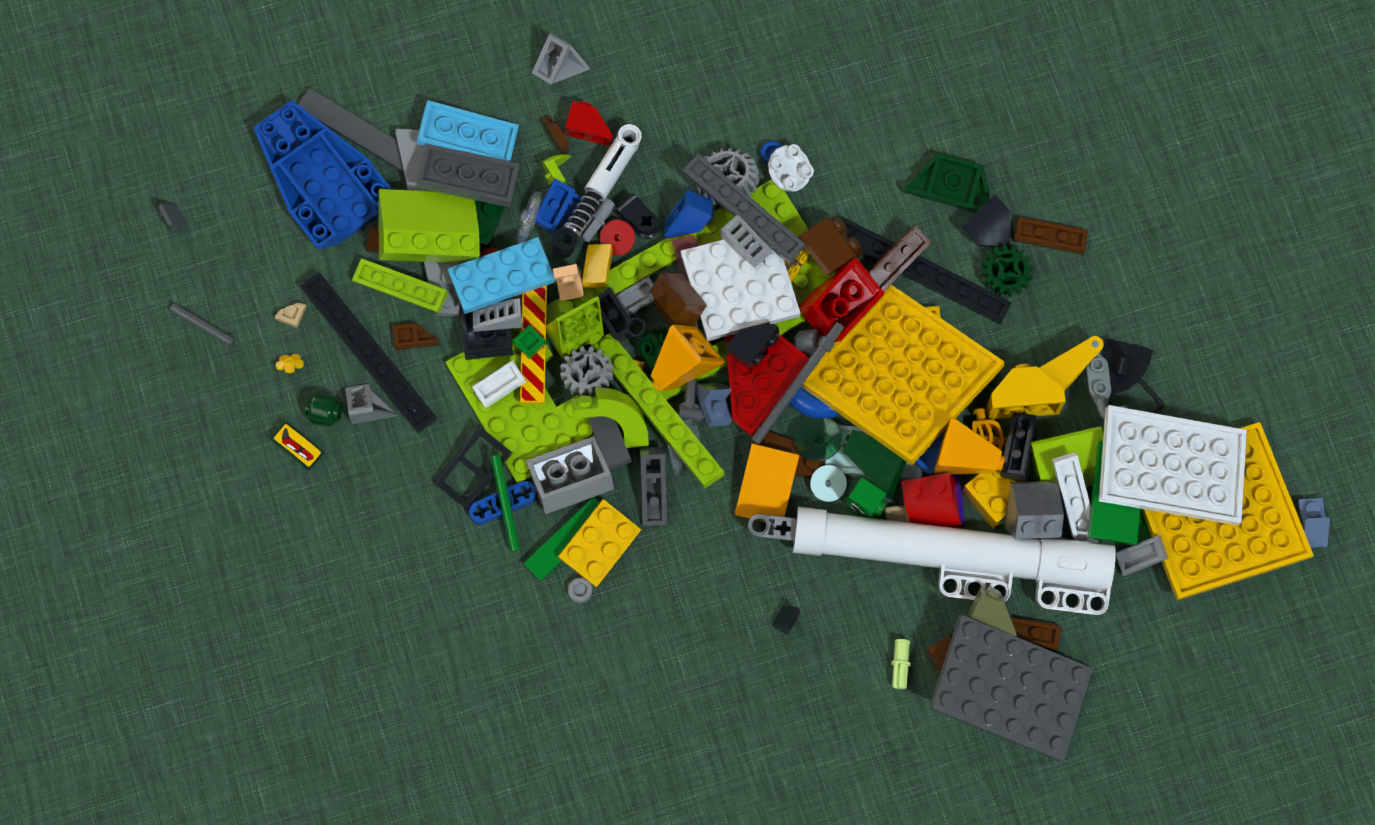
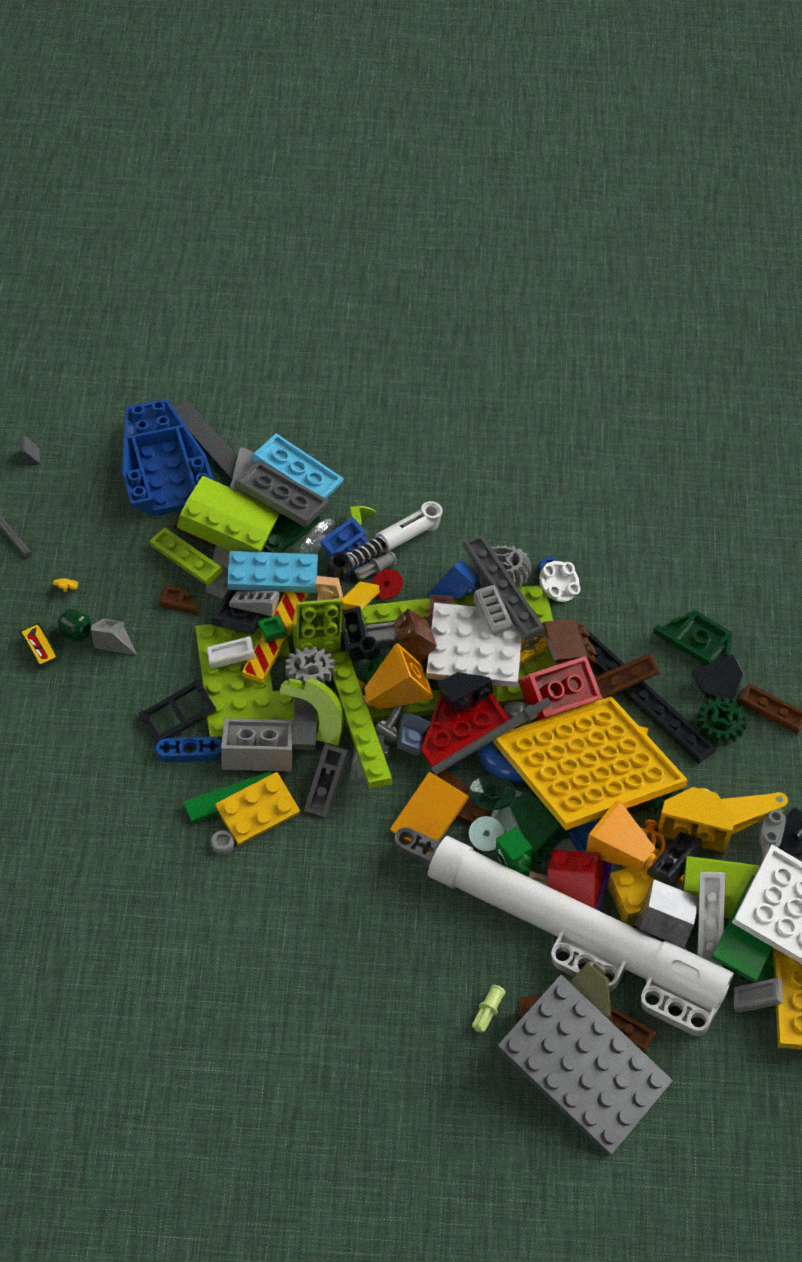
camera: 25 degrees right, 20 degrees down
(291, 314) = (87, 551): tan tile -> none
(368, 352) = (135, 599): black plate -> none
(505, 503) = (190, 747): green bar -> none
(556, 134) = (371, 495): reddish brown tile -> none
(558, 61) = (398, 443): light grey slope -> none
(587, 124) = (399, 494): red slope -> none
(636, 214) = (412, 574): black piece -> none
(786, 619) = (399, 933): black slope -> none

